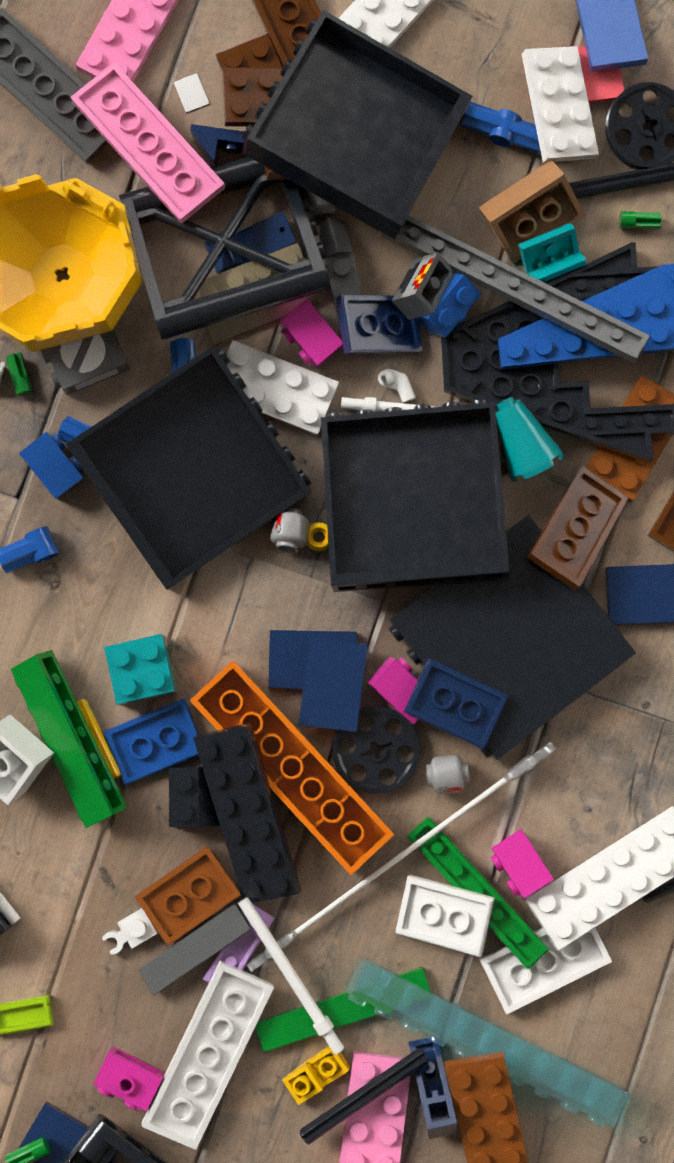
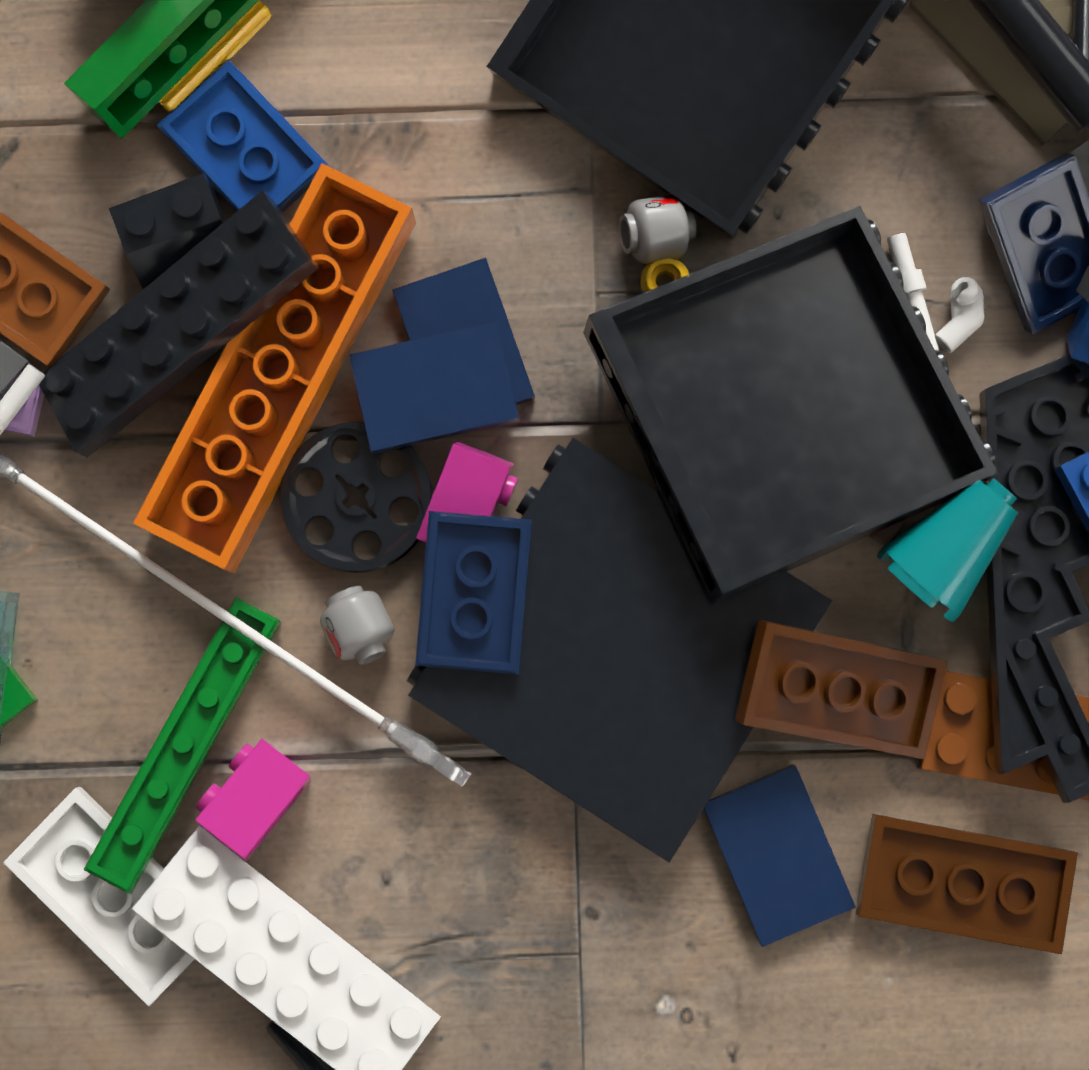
camera: 75 degrees right, 0 degrees up
(140, 669) = (346, 76): teal brick -> none
(283, 388) = (883, 132): white plate -> none
(310, 334) = (990, 143): dark pink brick -> none
(444, 915) = (127, 704): white tile -> none

